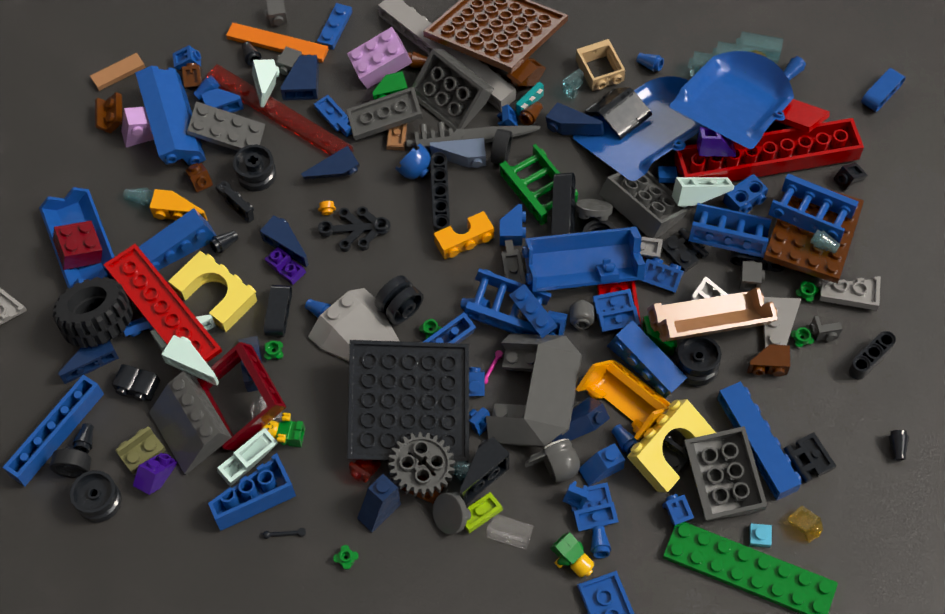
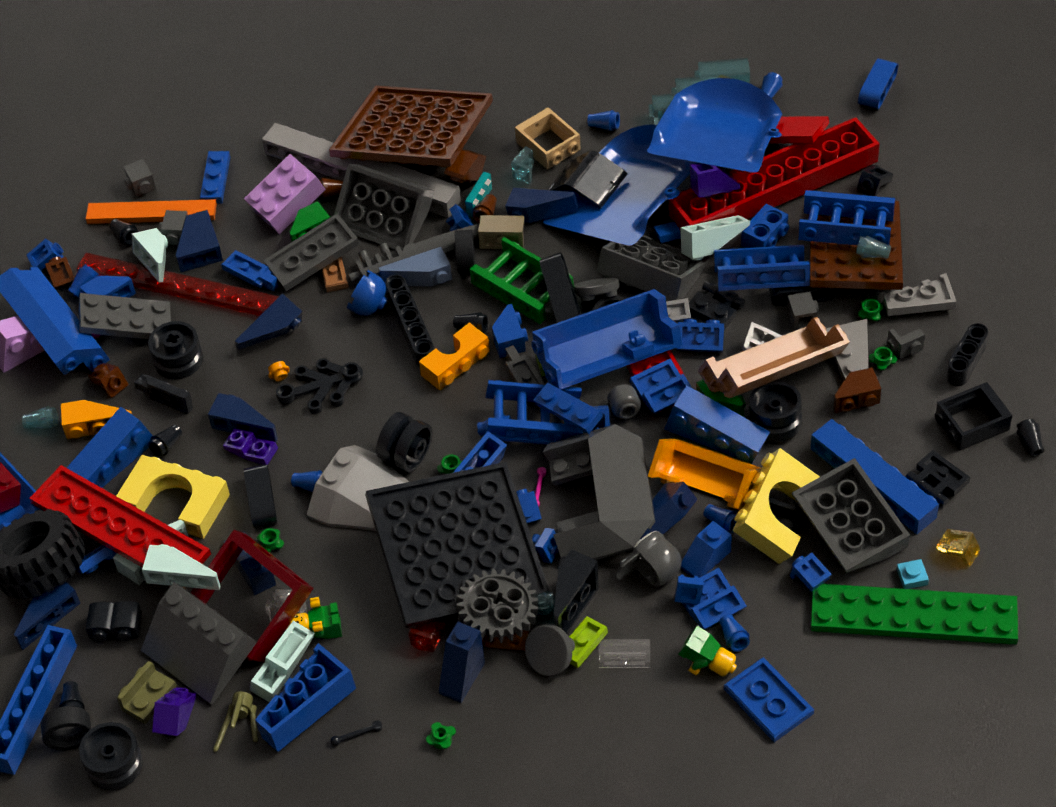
camera: 15 degrees left, 10 degrees down
(204, 484) = (239, 708): none -> olive plant
(490, 209) = (476, 319): none -> black cone
(535, 133) = (495, 227): none -> dark tan panel
(876, 406) = (989, 401): none -> black window

